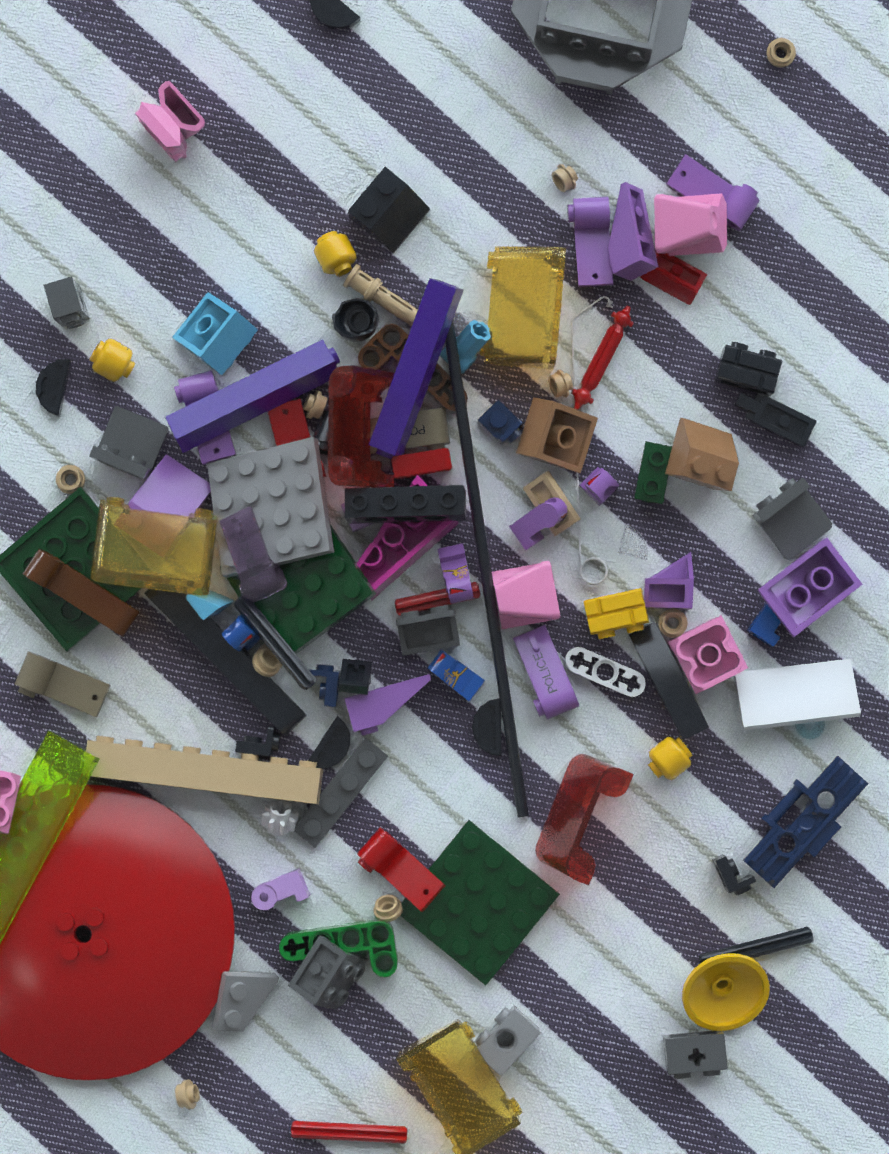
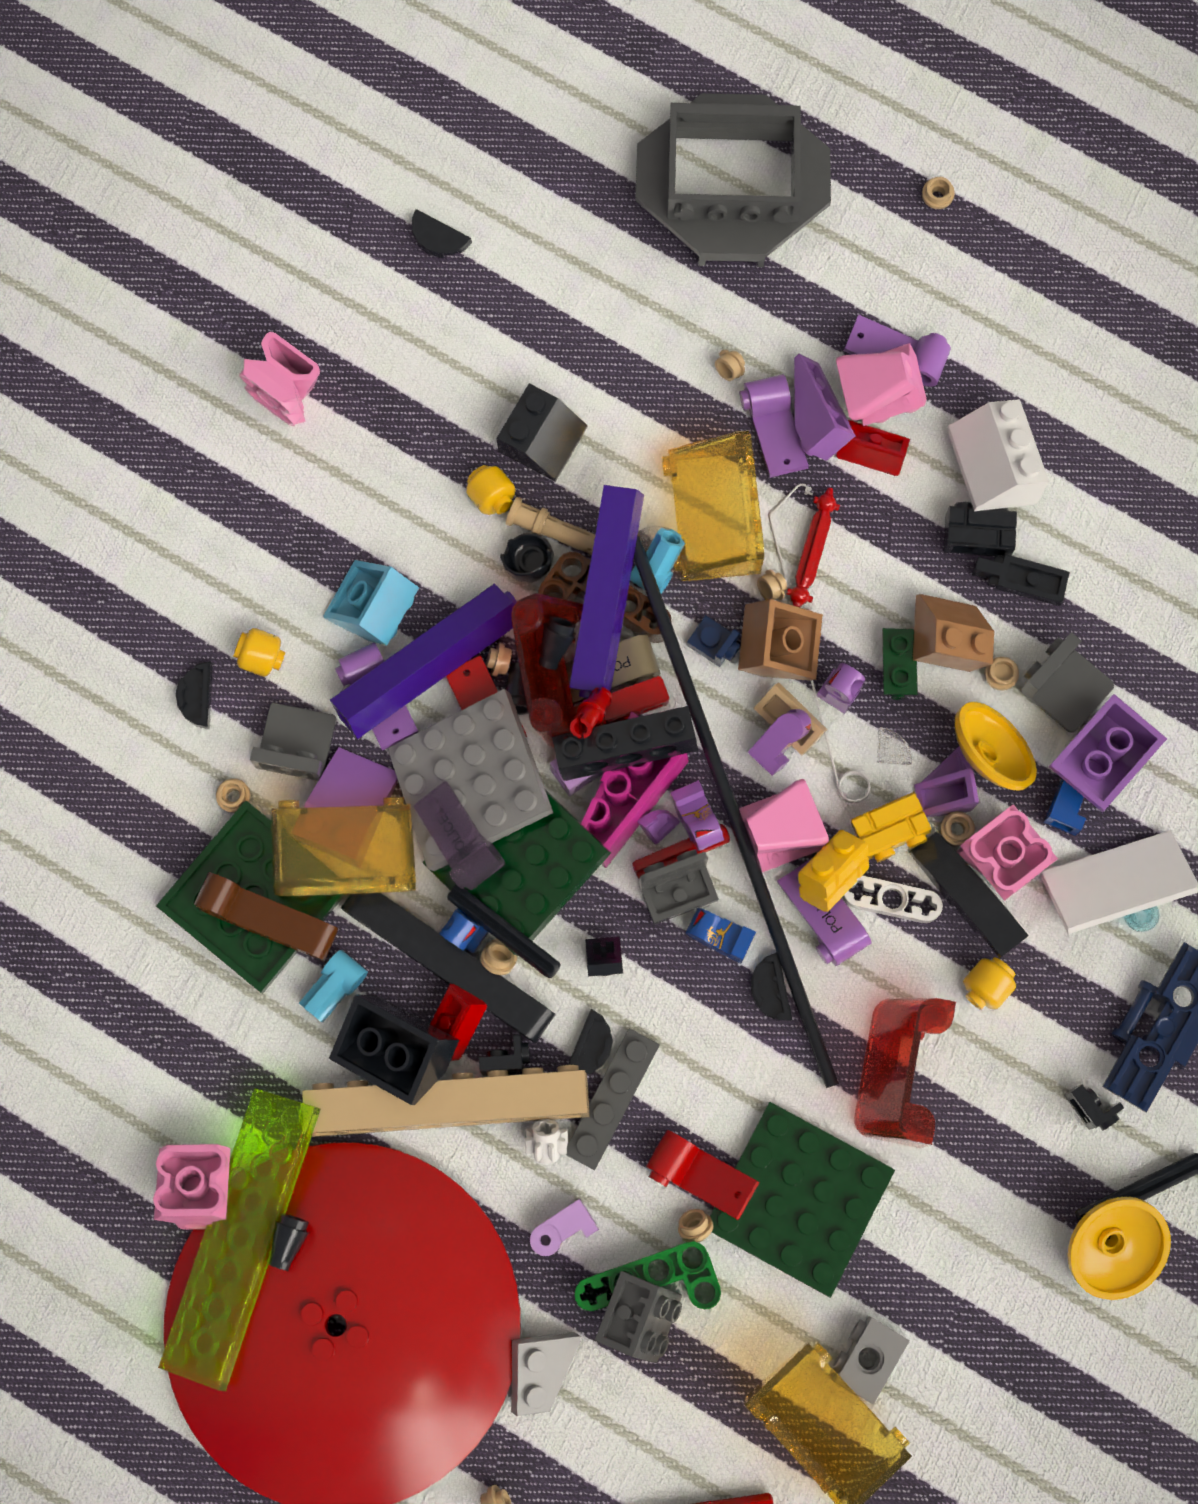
camera: 10 degrees left, 10 degrees down
(55, 859) = (287, 1240): none -> black cone
(61, 684) = (260, 1033): dark tan door -> none
(67, 302) = (196, 595): dark grey brick -> none
(132, 652) = (339, 978): none -> medium azure piece
(167, 719) = (392, 1048): none -> black slope
(210, 604) = (418, 904): medium azure slope -> none
(221, 707) = (459, 1016): none -> red slope
(330, 689) = (575, 980): dark blue bracket -> none
(365, 401) = (555, 641): none -> black cone
(381, 473) = (591, 712): none -> red pin
(381, 703) = (635, 989): medium lavender slope -> none
(423, 572) = (658, 824): none -> medium lavender tile
(559, 641) = (833, 870): none -> yellow brick
(709, 1044) = (1077, 1330): dark grey brick -> none
(717, 562) = (994, 747): none -> yellow dish
(740, 497) = (1002, 673): none -> tan plate
(777, 308) = (998, 456): none -> white slope

